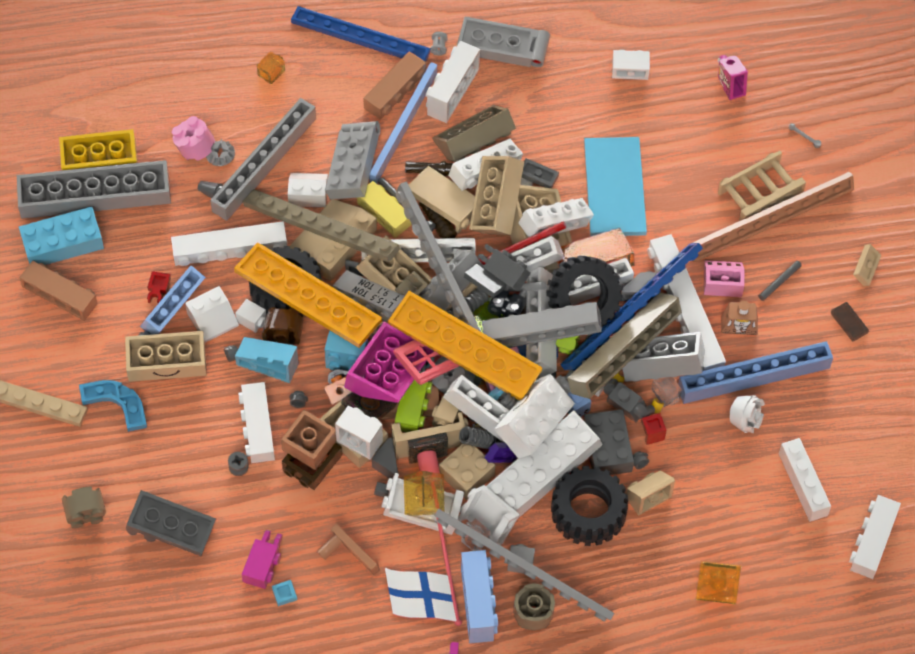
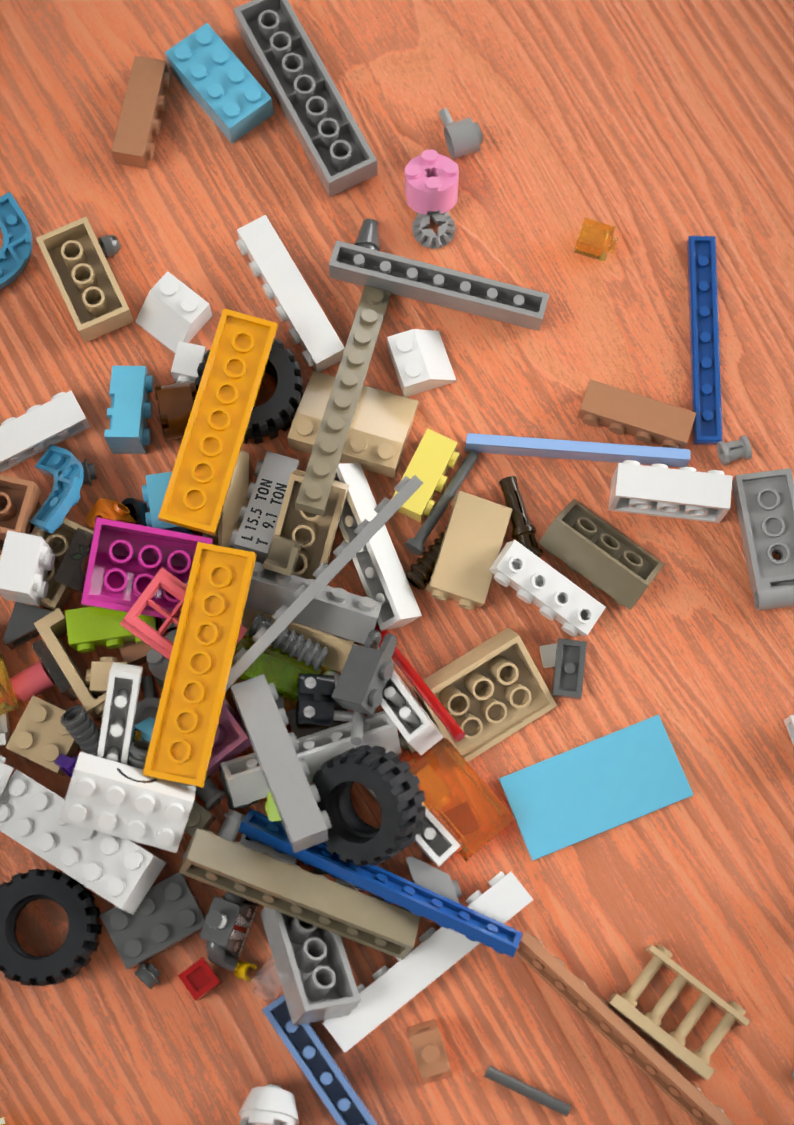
camera: 70 degrees right, 15 degrees up
(98, 150) = (362, 75): yellow brick -> none
(158, 284) = (197, 230): red plate -> none
(167, 115) = (460, 136): none -> light grey piece
(173, 301) = (169, 256): light blue brick -> none
(230, 352) = (125, 358): dark grey hinge -> none
(304, 399) = (68, 480): none -> dark azure plate
(352, 160) = (482, 402): light grey hinge -> none
(484, 280) = (335, 653): tile -> none
(496, 195) = (488, 621): tan brick -> none
(573, 212) = (490, 720): white brick -> none
(650, 491) = (95, 1006): tan slope -> none
(723, 278) = (496, 1002): bright pink slope -> none

